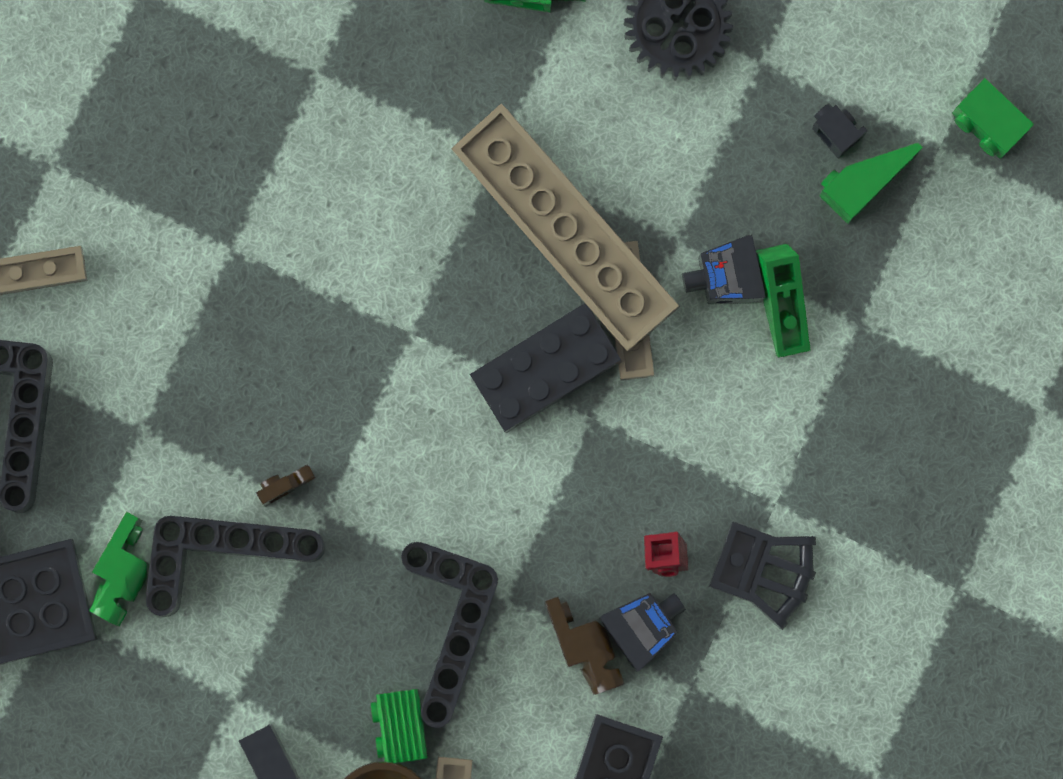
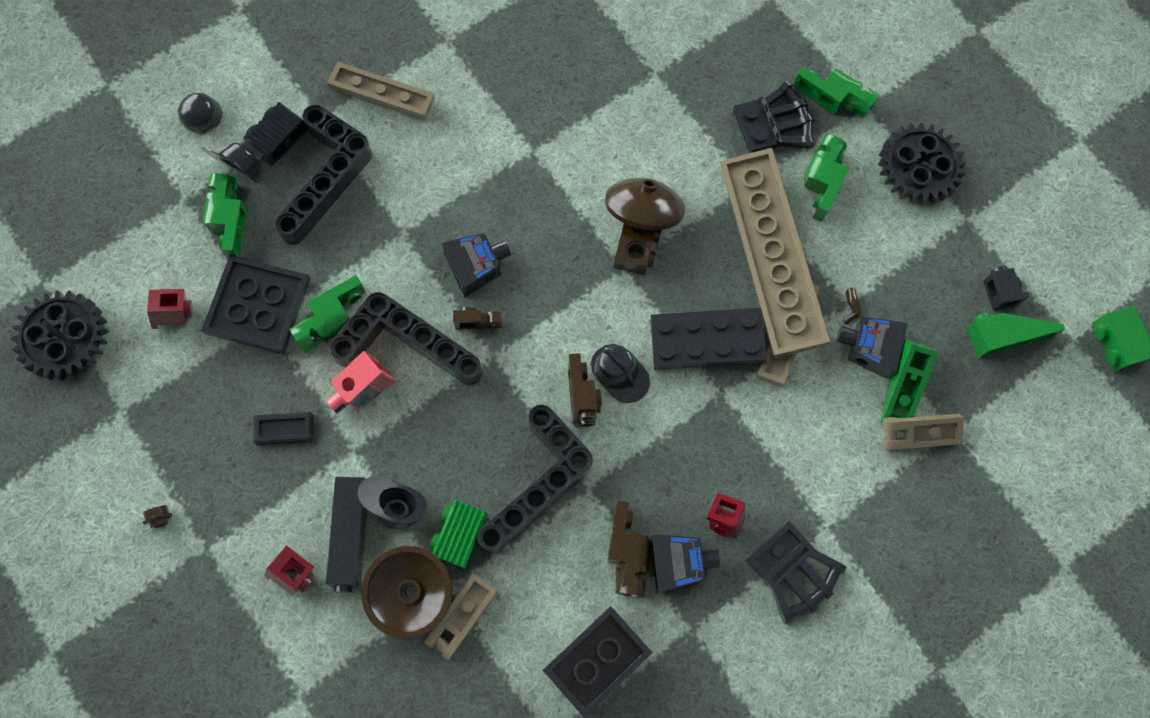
camera: 30 degrees right, 10 degrees down
(147, 719) = (283, 428): none -> black tile
(209, 615) = (359, 383): none -> coral torso
(244, 420) = (474, 261): none -> torso
(312, 732) = (392, 502): none -> black piece
(395, 251) = (645, 204): none -> dark brown dish
(403, 301) = (630, 242): none -> dark brown brick
(451, 513) = (583, 396): none -> dark brown plate
(471, 75) = (759, 126): none -> black plate
(471, 456) = (620, 373): none -> black piece
(576, 100) = (826, 174): none -> green plate
(684, 237) = (853, 302): none -> dark brown piece
(825, 345) = (923, 431): none -> dark tan plate

